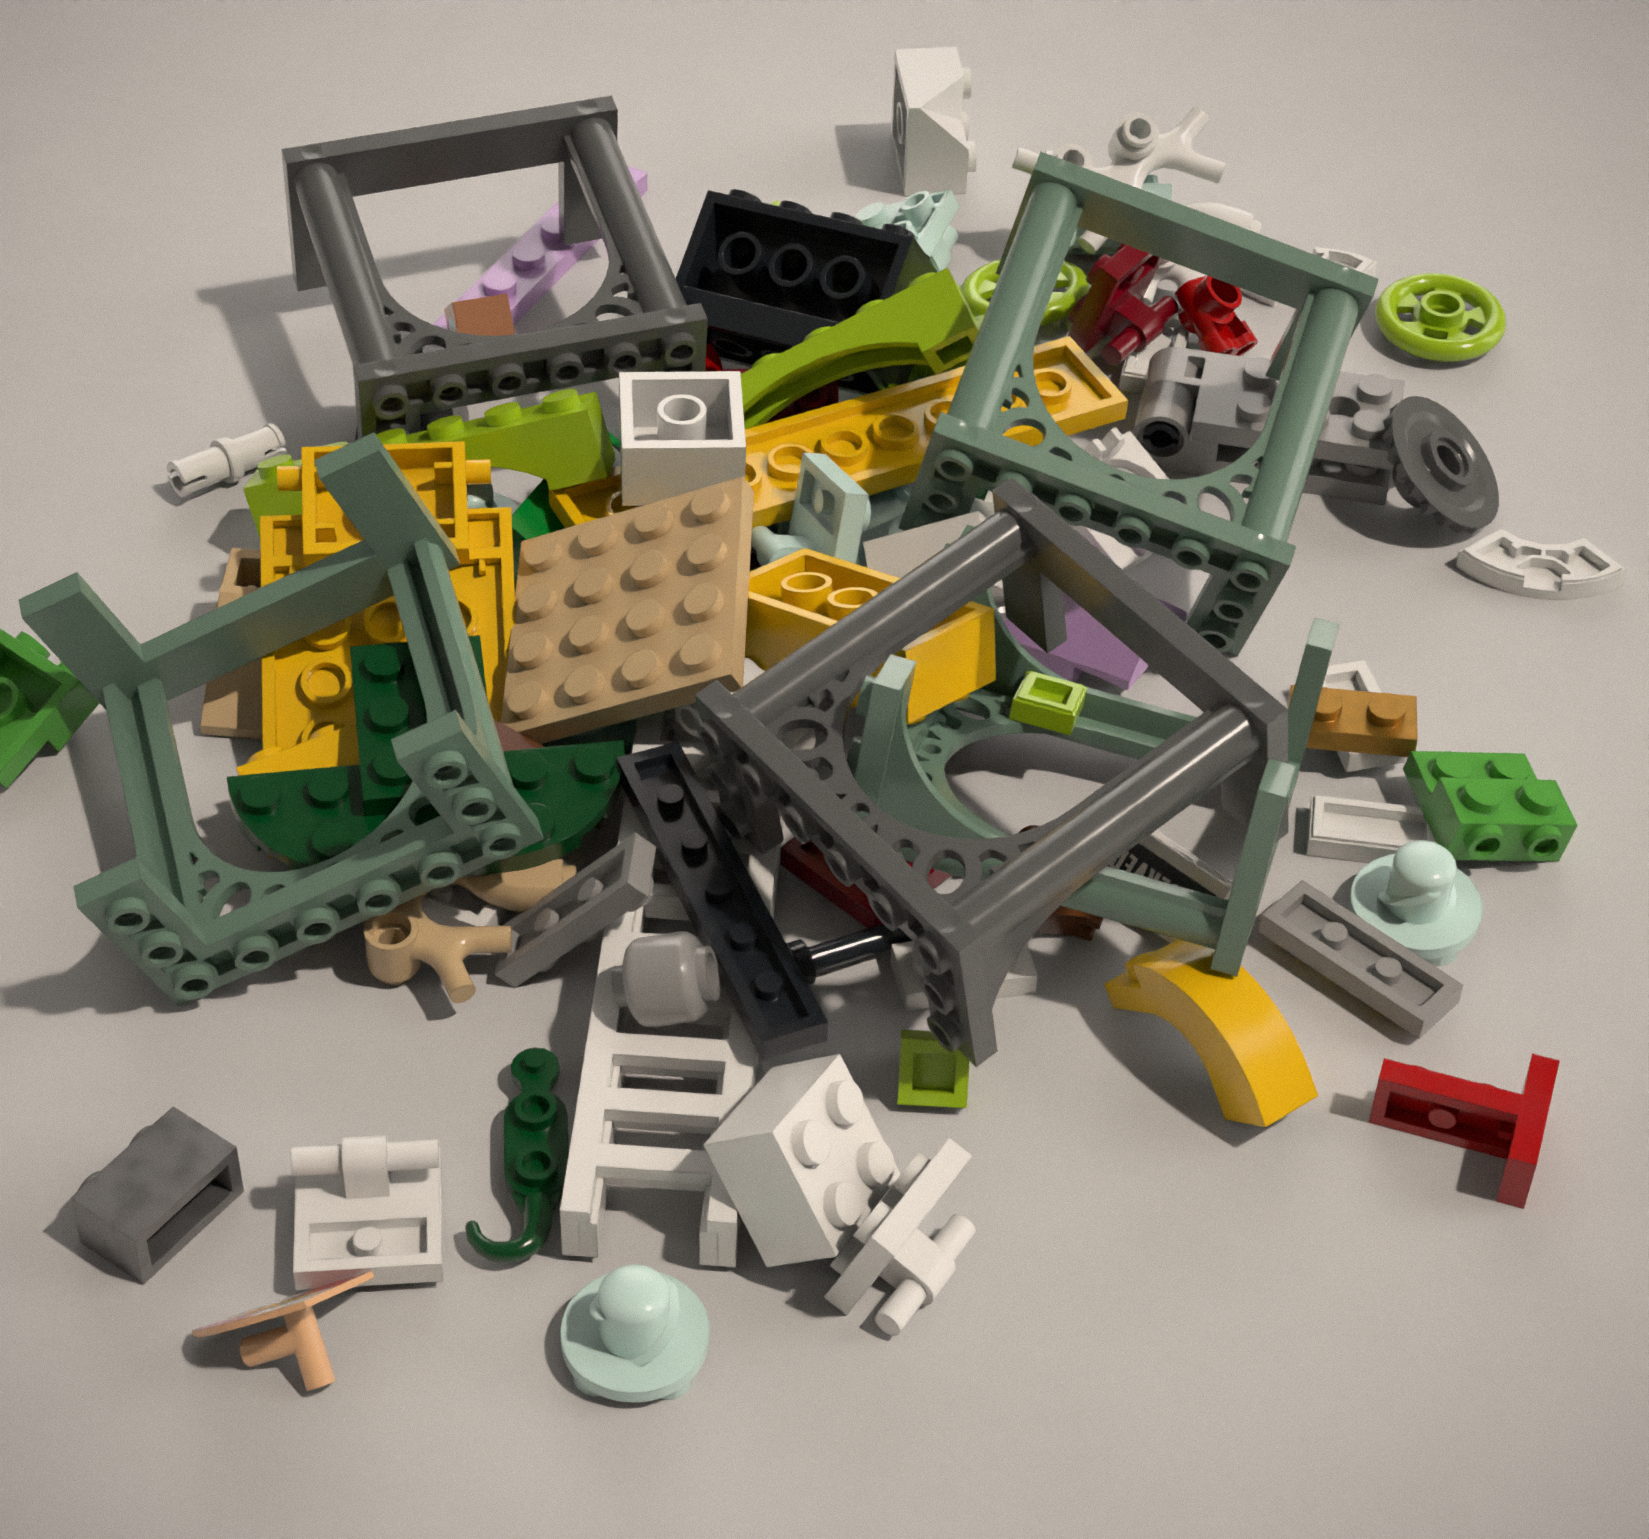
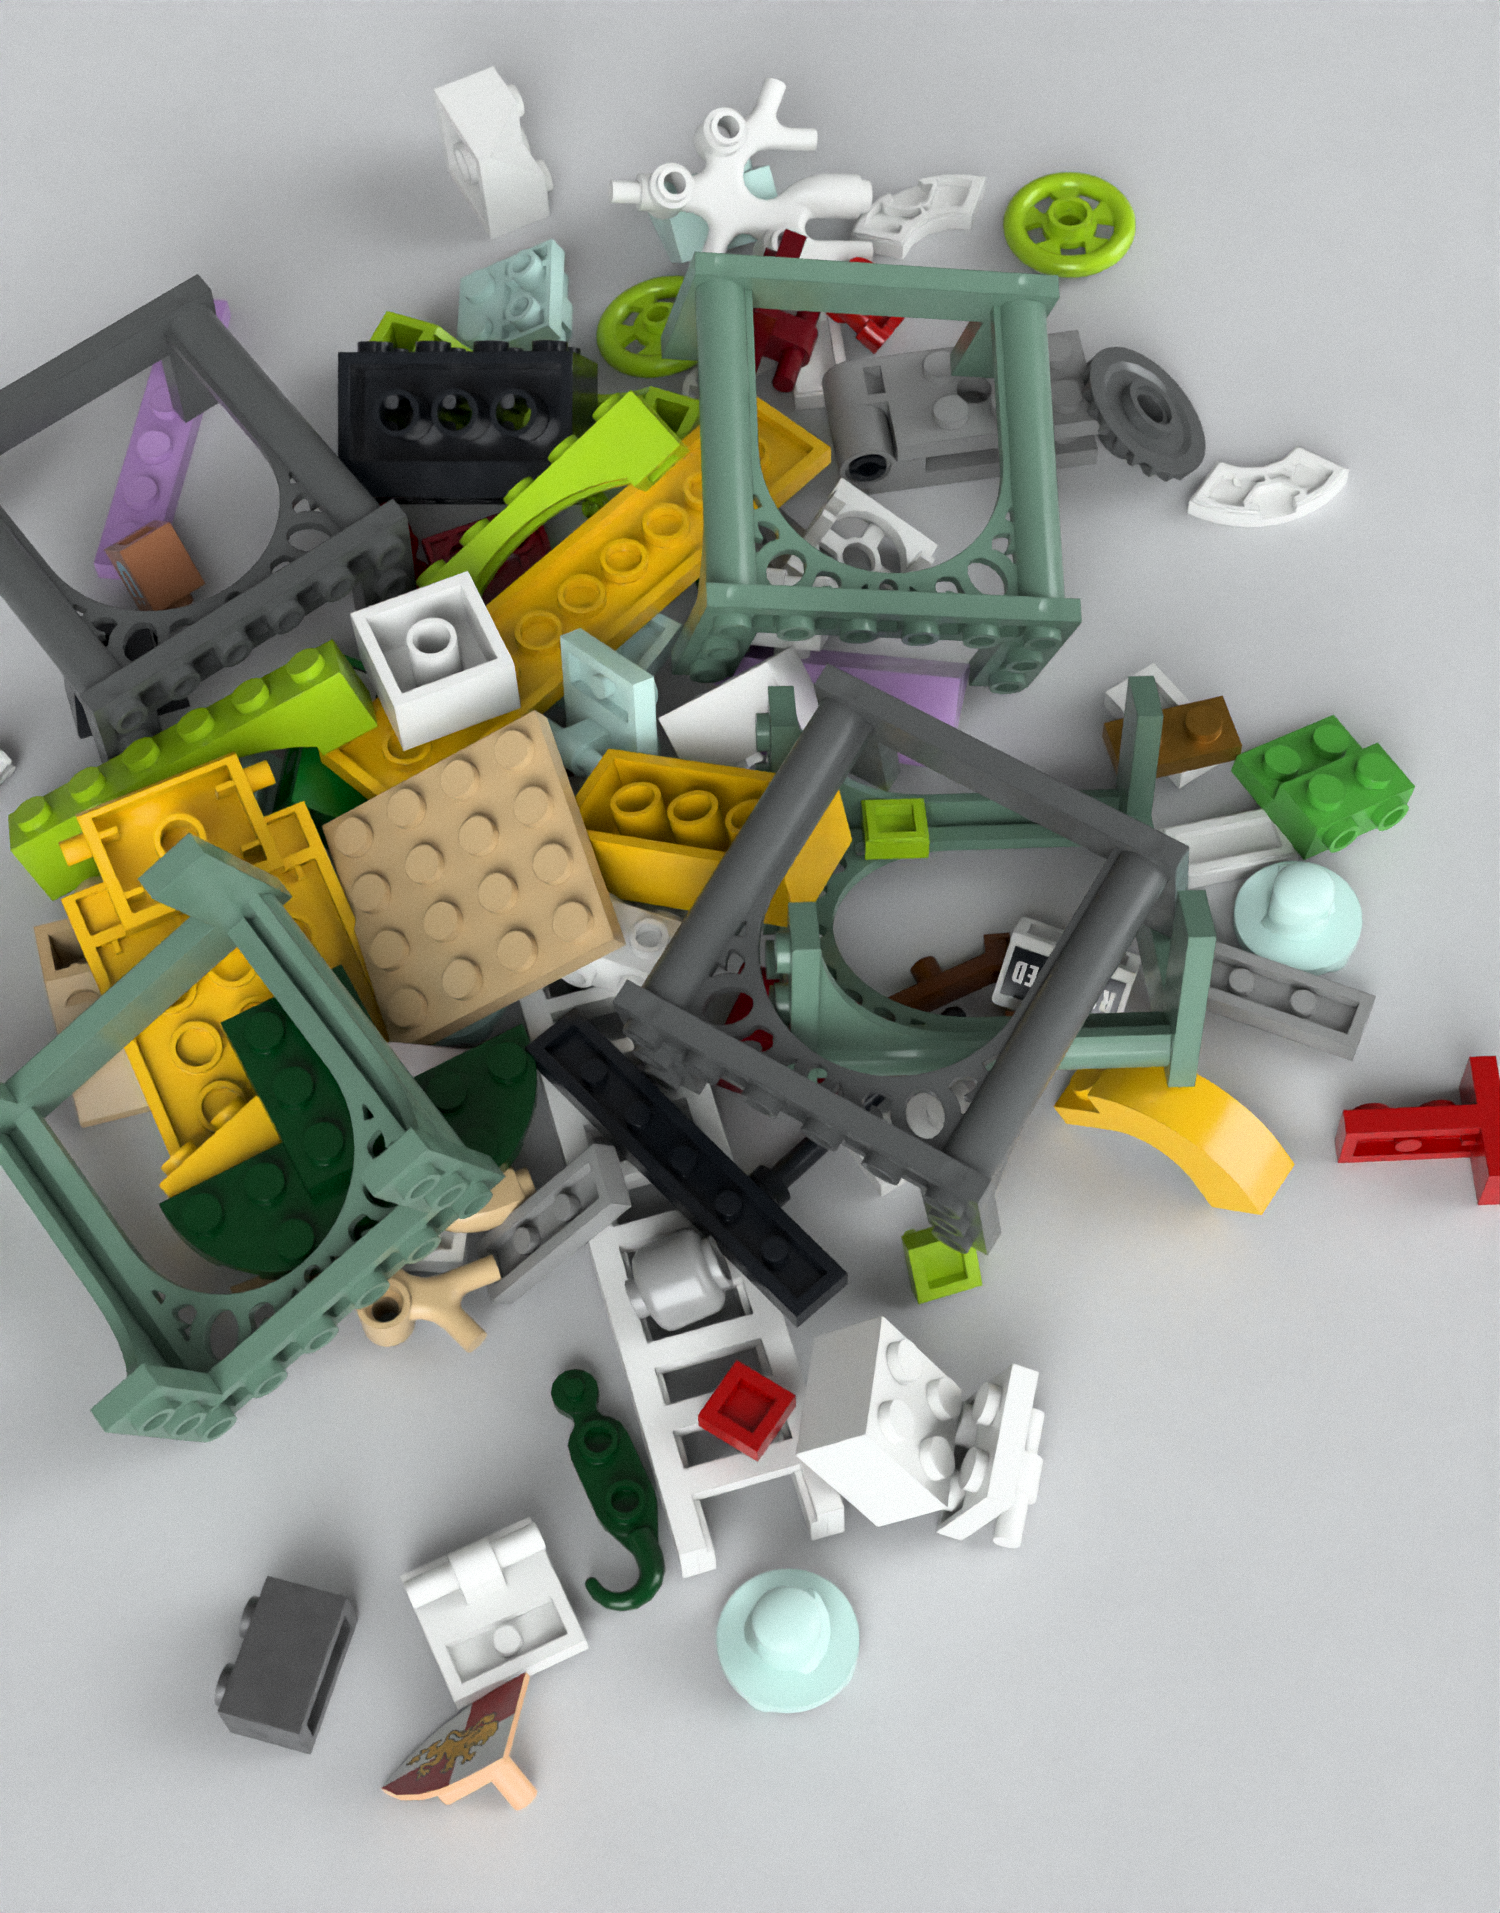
camera: 15 degrees left, 15 degrees up
(679, 1106) = (747, 1410): none -> red plate

